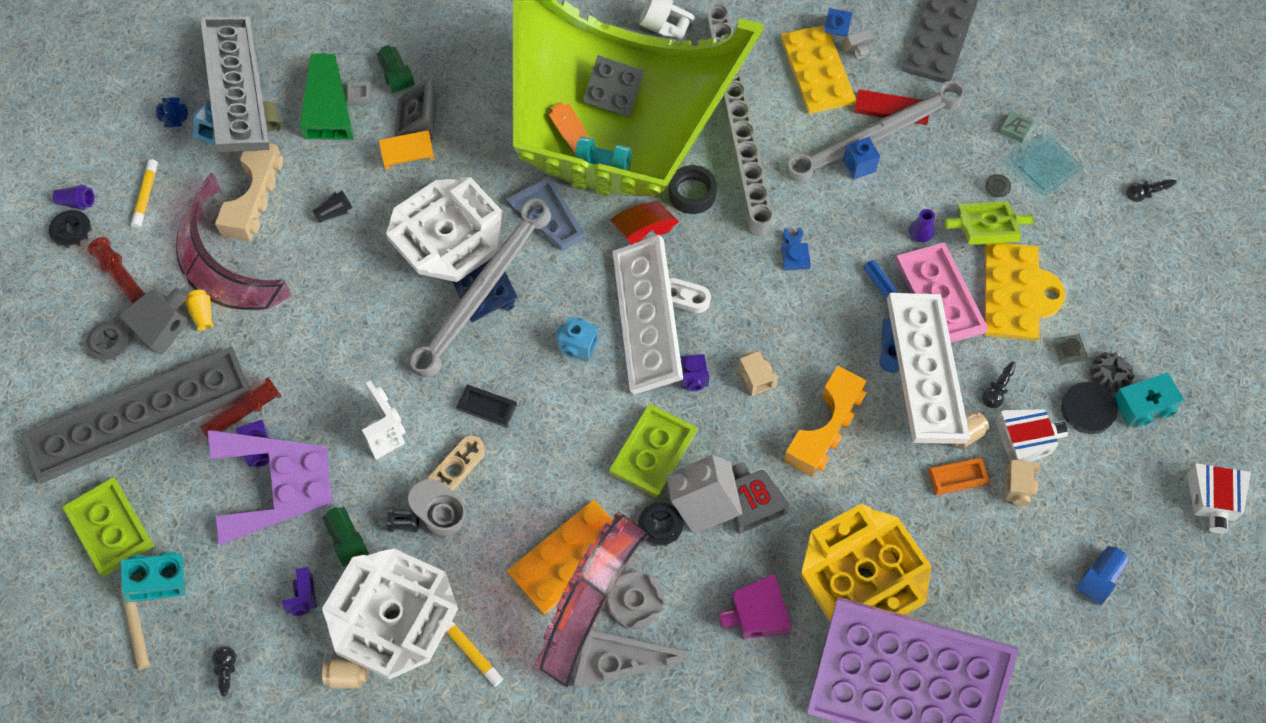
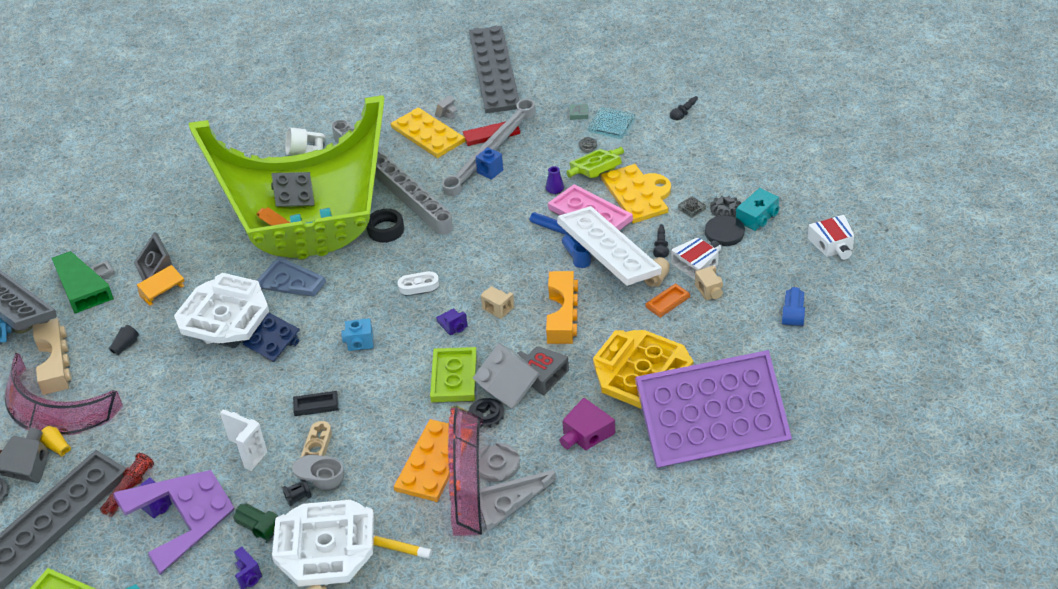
camera: 25 degrees left, 20 degrees down
(395, 72) = (121, 246): dark green piece -> none
(480, 288) = (269, 334): light grey piece -> none
(643, 218) = (362, 253): red slope -> none
(647, 315) = (399, 301): white plate -> none
(794, 253) = (478, 232): blue plate -> none
(838, 22) = (425, 100): blue bracket -> none

